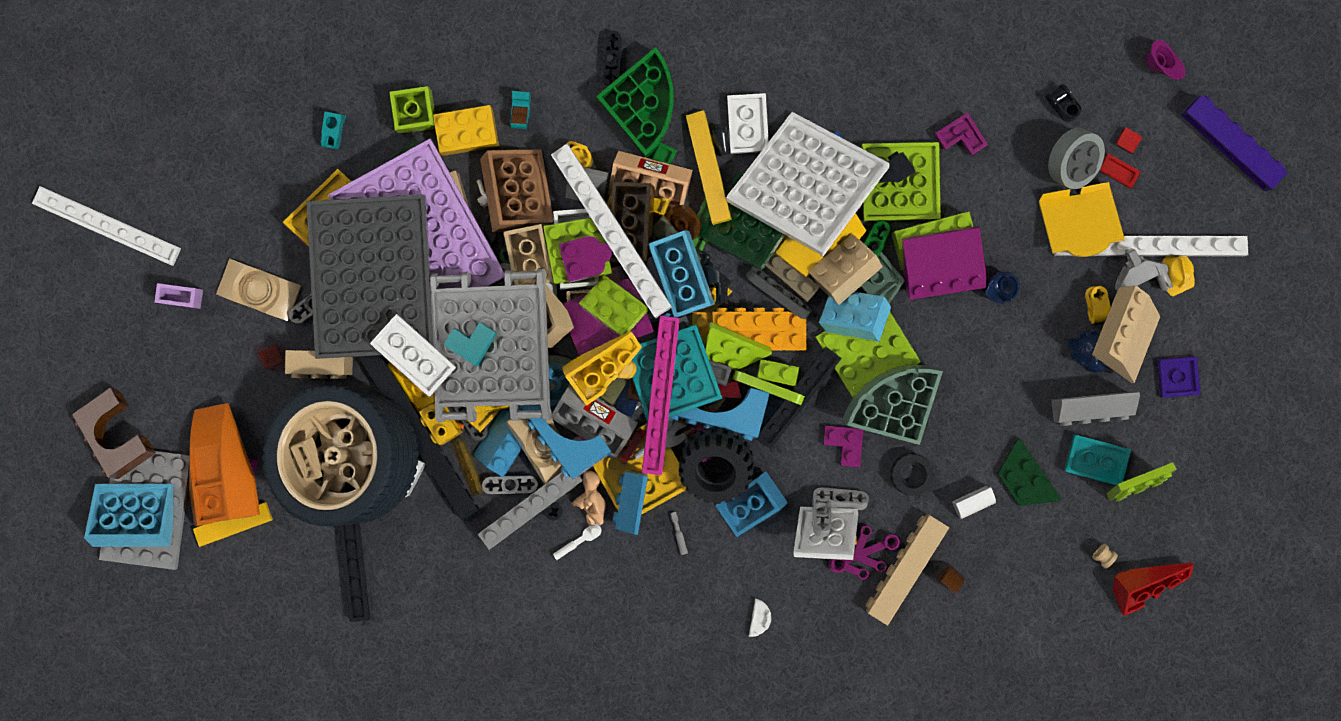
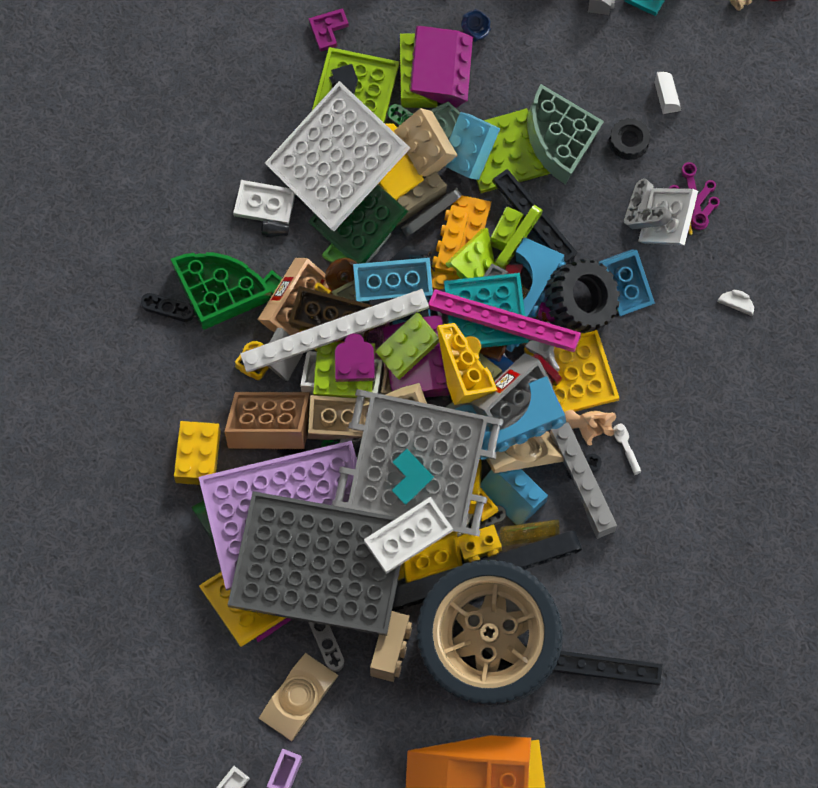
camera: 80 degrees left, 20 degrees down
(271, 357) = (371, 698): clear red plate -> none
(306, 454) = (488, 668): tan slope -> none
(332, 130) = (158, 581): teal leg -> none
(413, 109) = (163, 496): lime brick -> none
(483, 199) = (268, 454): white hand -> none
(495, 479) = (564, 485): light grey beam -> none
(520, 109) = (191, 399): teal leg -> none
(630, 501) = (599, 379): dark azure slope -> none
(678, 534) = (641, 354): light grey piece -> none
(708, 167) = (296, 243): yellow tile -> none
(849, 439) = (587, 184): magenta plate -> none
(906, 569) = (717, 162): tan brick -> none
(951, 579) = (735, 128): reddish brown brick -> none
(1025, 478) = (654, 48): dark green wing -> none

